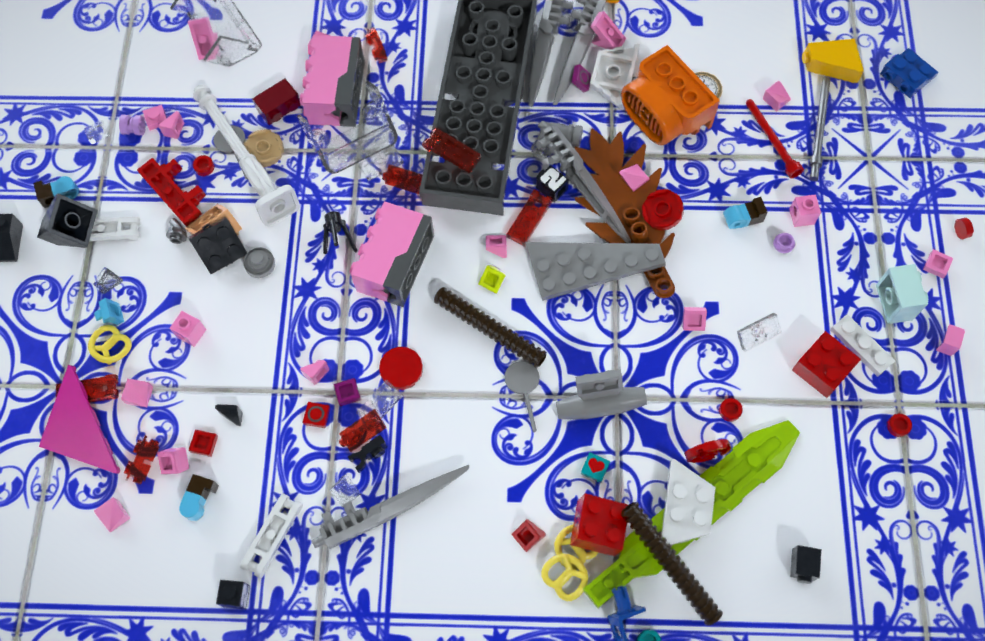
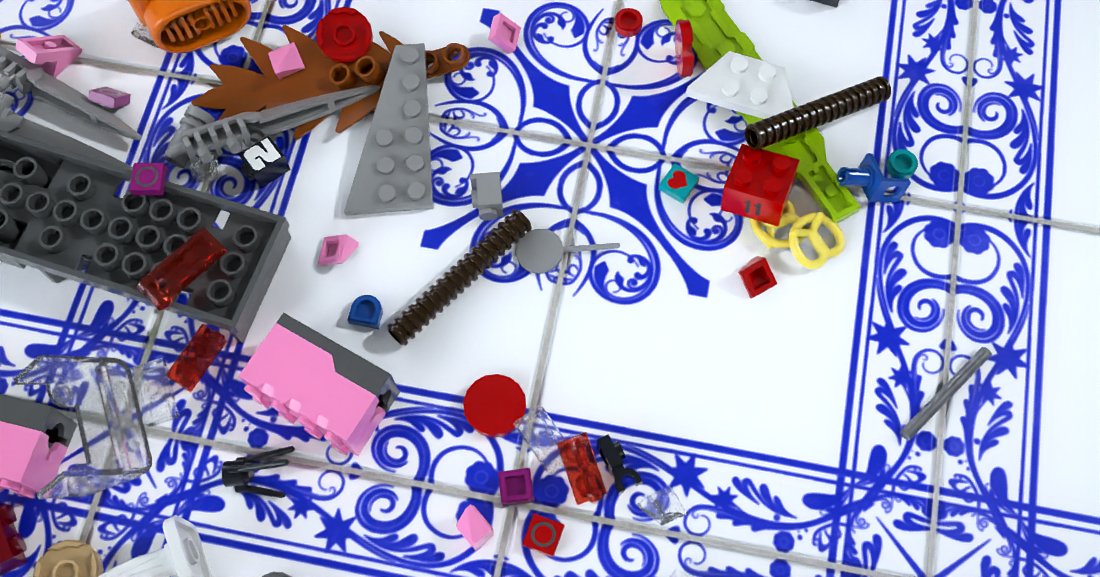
camera: 80 degrees left, 0 degrees up
(362, 521) = (703, 462): light grey piece -> none
(455, 273) = (366, 312): none -> blue tile
(492, 279) = (387, 264): neon yellow slope -> none
(512, 114) = (148, 179): none -> magenta tile
(529, 218) = (307, 202): clear red plate -> none
(554, 333) = (487, 195): none -> light grey brick
(600, 396) = (593, 155): light grey plate -> none
(614, 71) = (117, 56): white wing -> none

